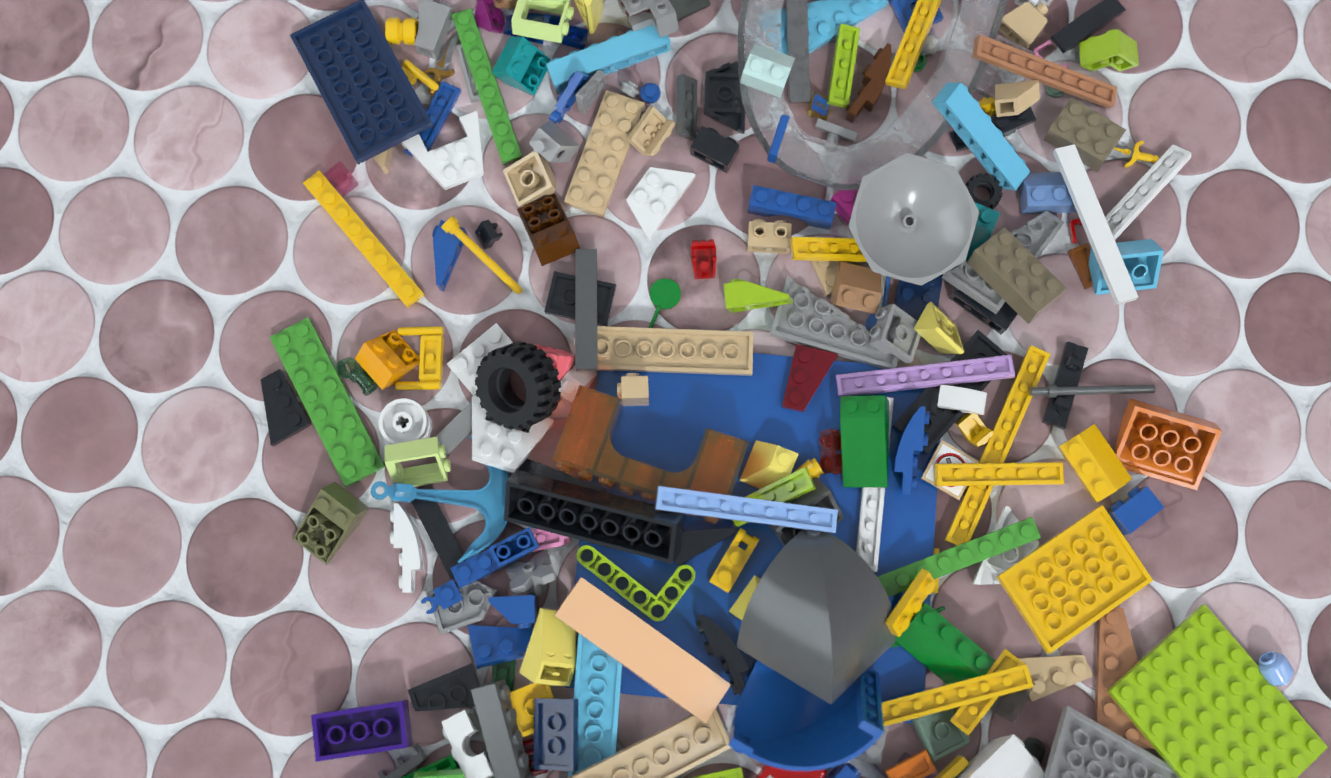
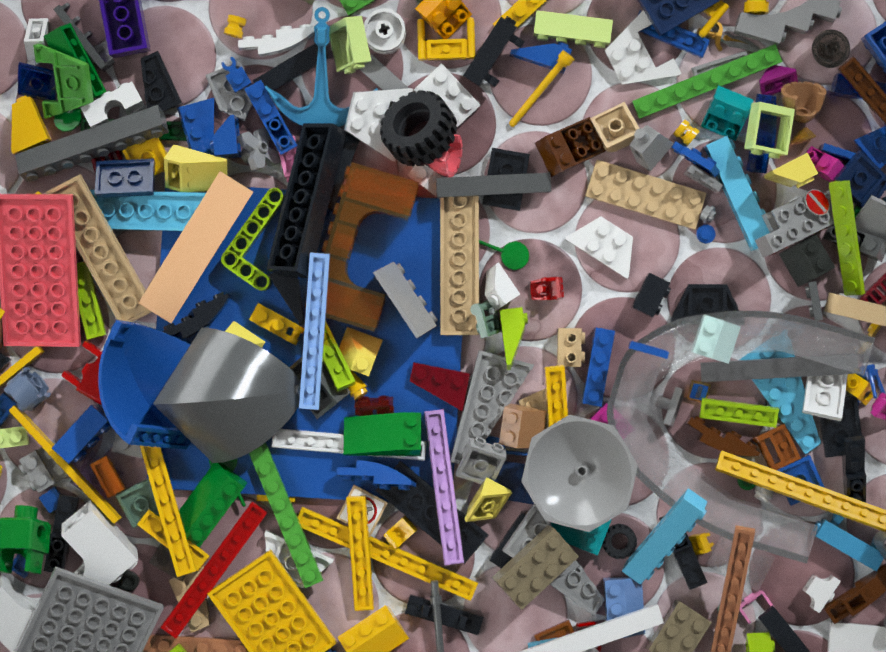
camera: 90 degrees right, 10 degrees up
(385, 596) = (235, 26): none -> yellow wheel
(418, 221) = (572, 28): none -> yellowish green brick
(436, 306) = (491, 50): none -> black brick
(487, 234) = (562, 91): black tile -> none
(540, 107) = (689, 135): none -> yellow wheel
(633, 390) = (420, 230): tan brick -> none
(650, 132) = (665, 236): tan bracket -> none
(686, 107) = (692, 268): dark grey plate -> none
(700, 309) = (499, 287): none -> white slope
(713, 409) = (405, 300): none -> light grey slope
(743, 320) = (488, 324): none -> sand green plate
(877, 24) = (782, 445): none -> dark orange plate
(910, 603) = (243, 474): yellow plate -> none
(962, 399) = (422, 519): white slope -> none
(1015, 97) = (707, 569): tan slope -> none
(1021, 646) = (214, 570): none -> red plate
(1024, 23) = (787, 582): tan torso -> none

